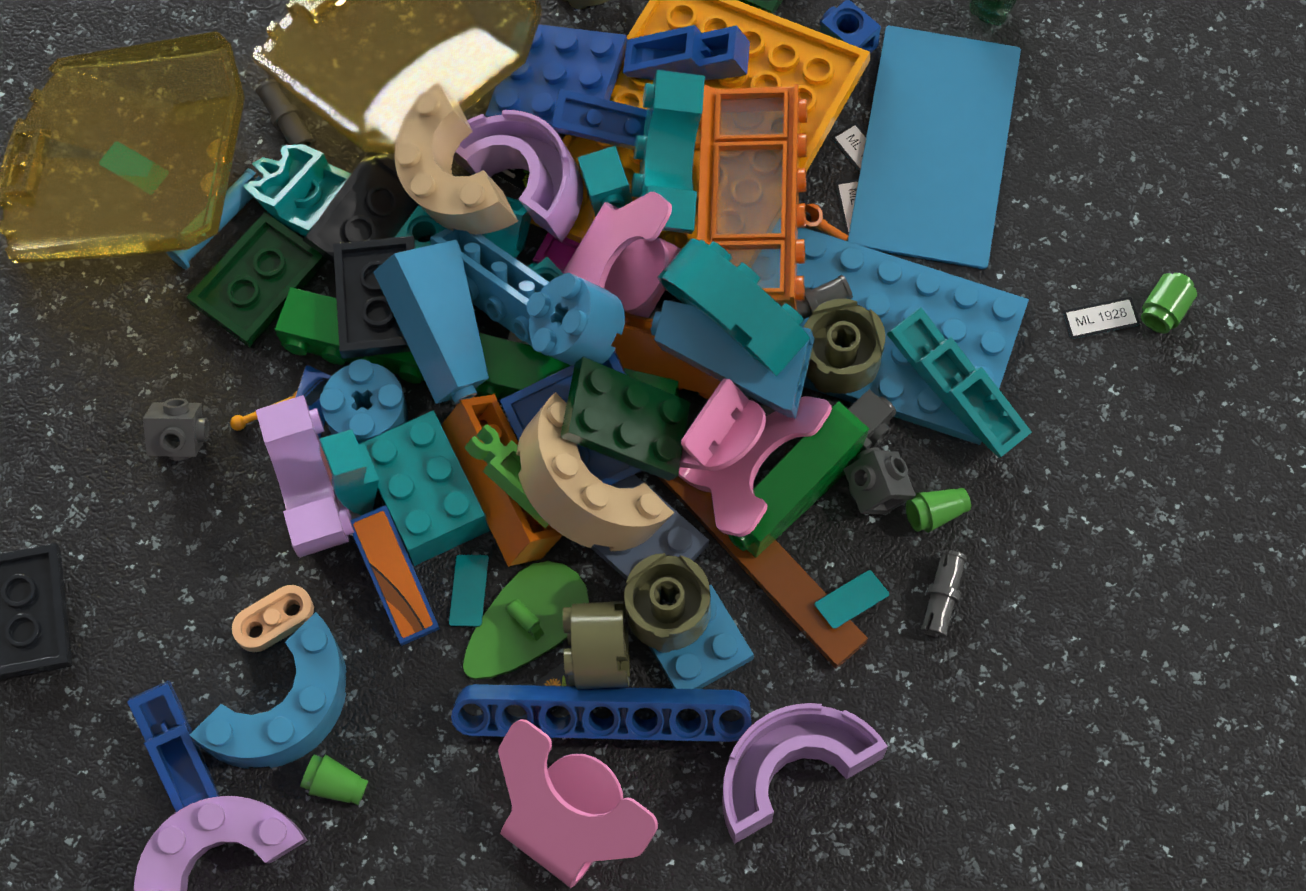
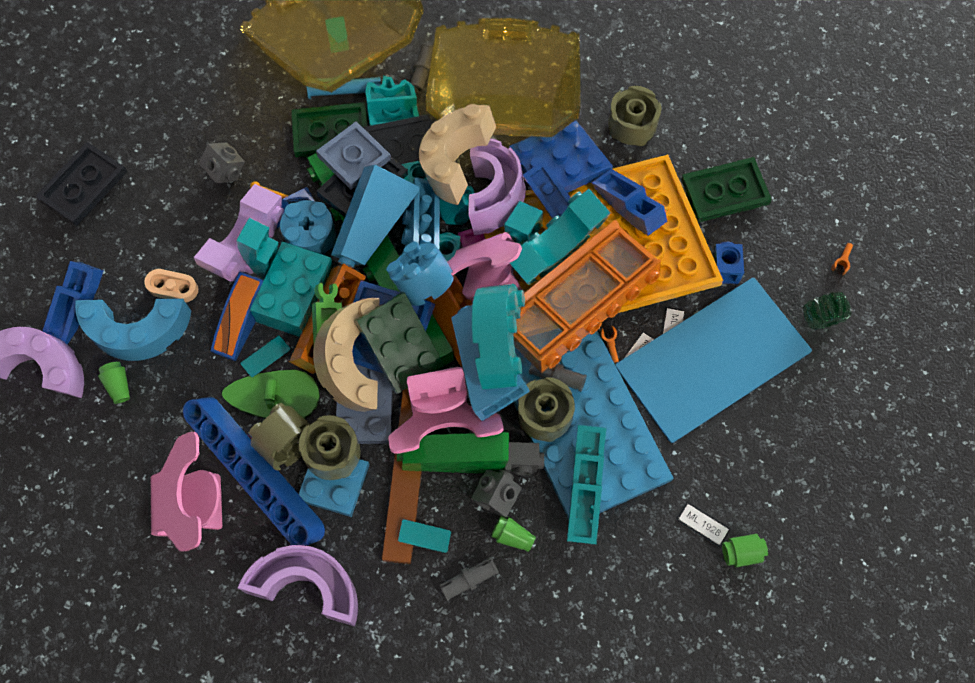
camera: 45 degrees right, 0 degrees up
(339, 273) = (351, 152): none -> sand blue plate

